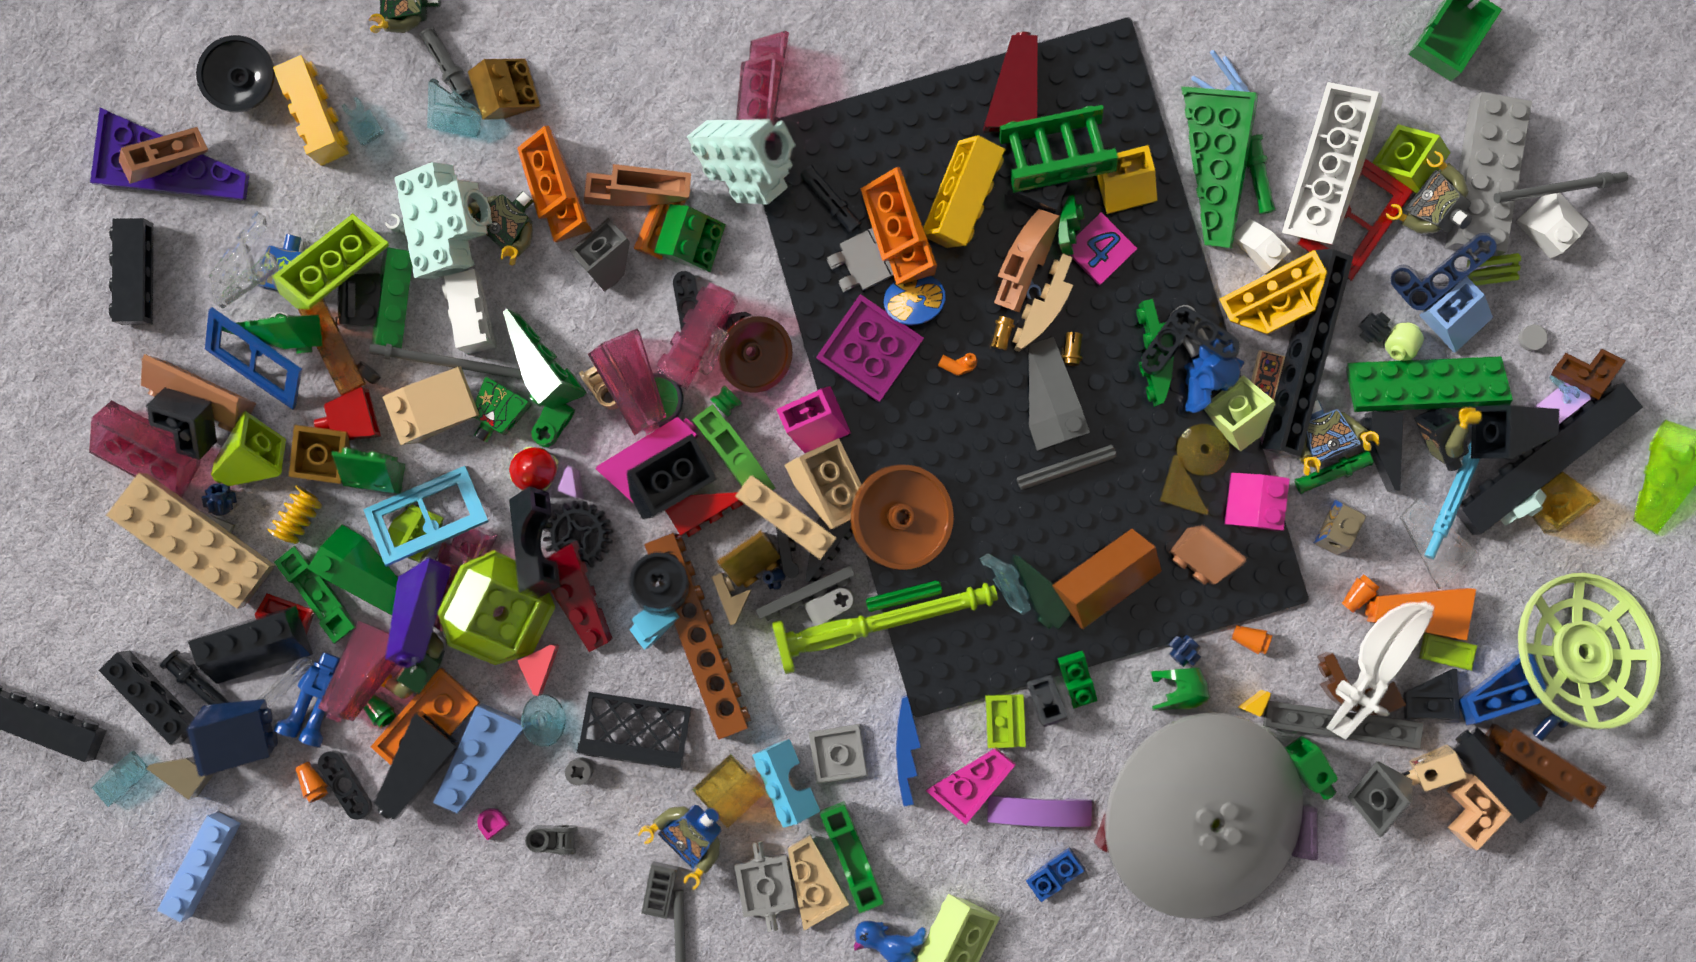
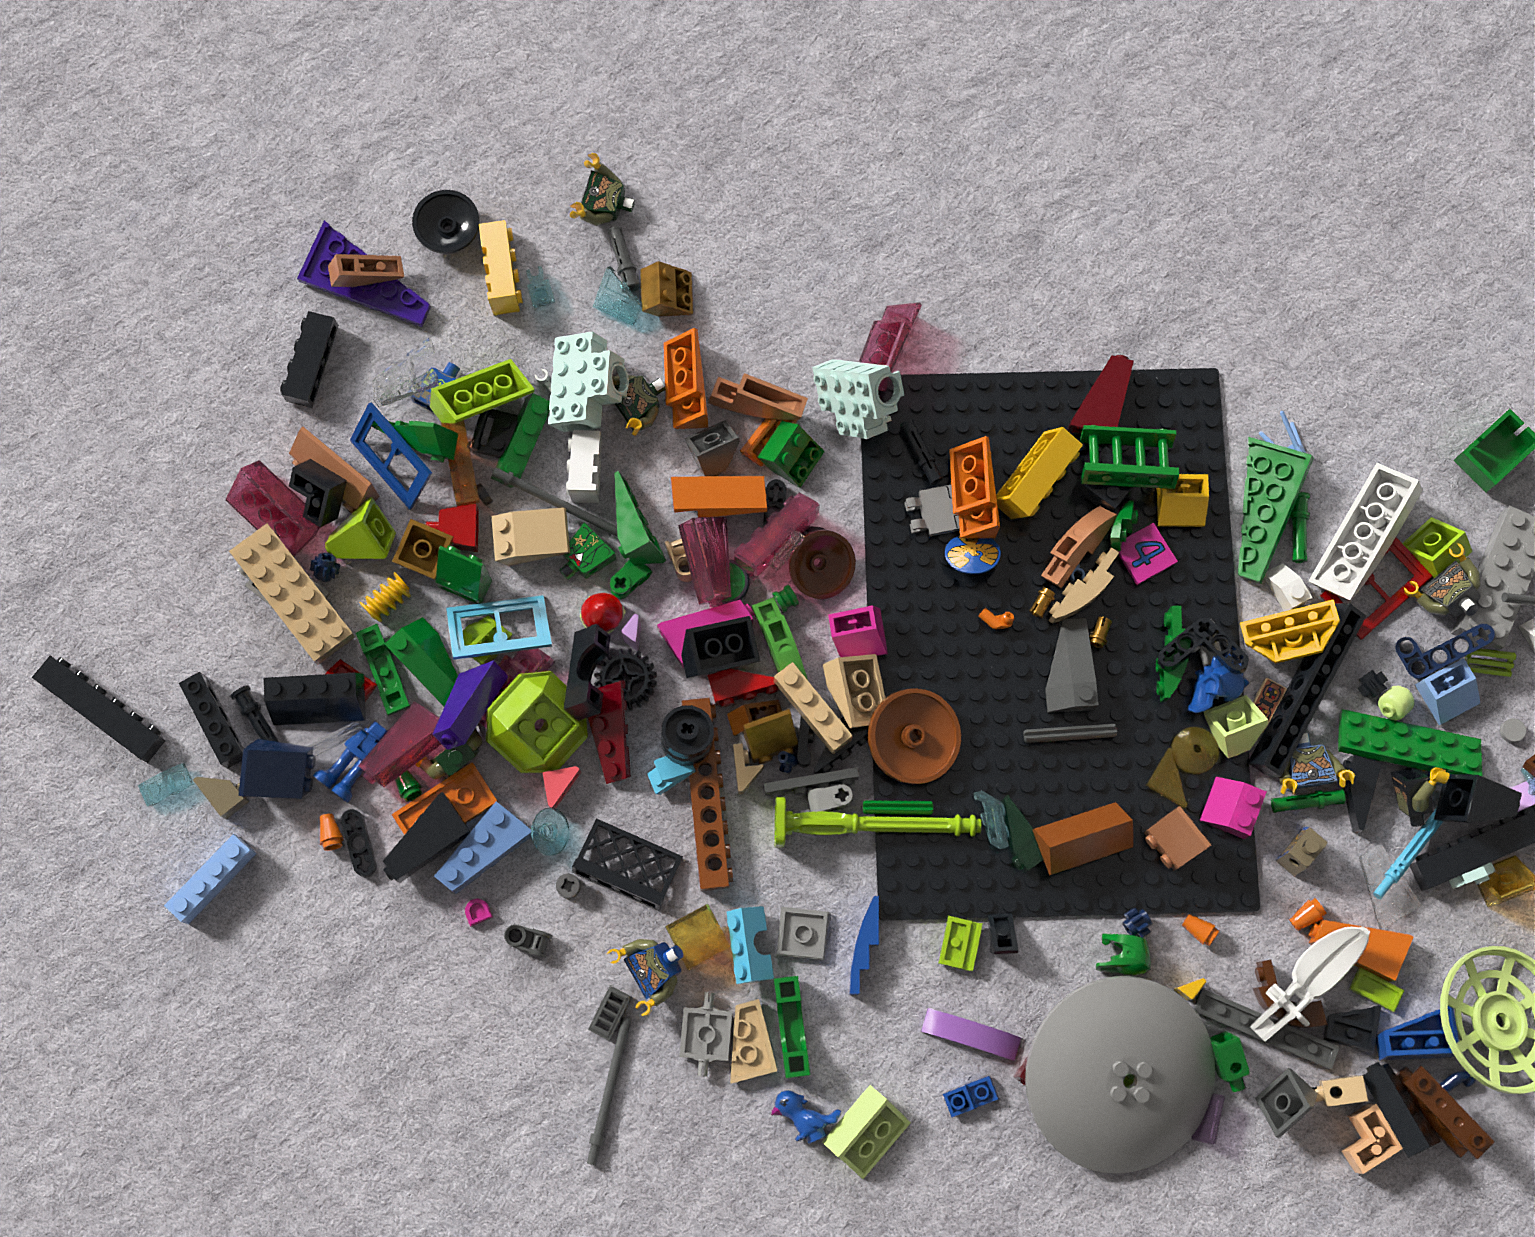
camera: 15 degrees right, 10 degrees down
(623, 308) = (719, 495): none -> orange slope
(727, 538) = (751, 712): none -> reddish brown arch
(869, 348) = (922, 585): magenta plate -> none
(972, 785) = (916, 993): dark pink wing -> none
(1077, 679) = (1034, 924): green slope -> none

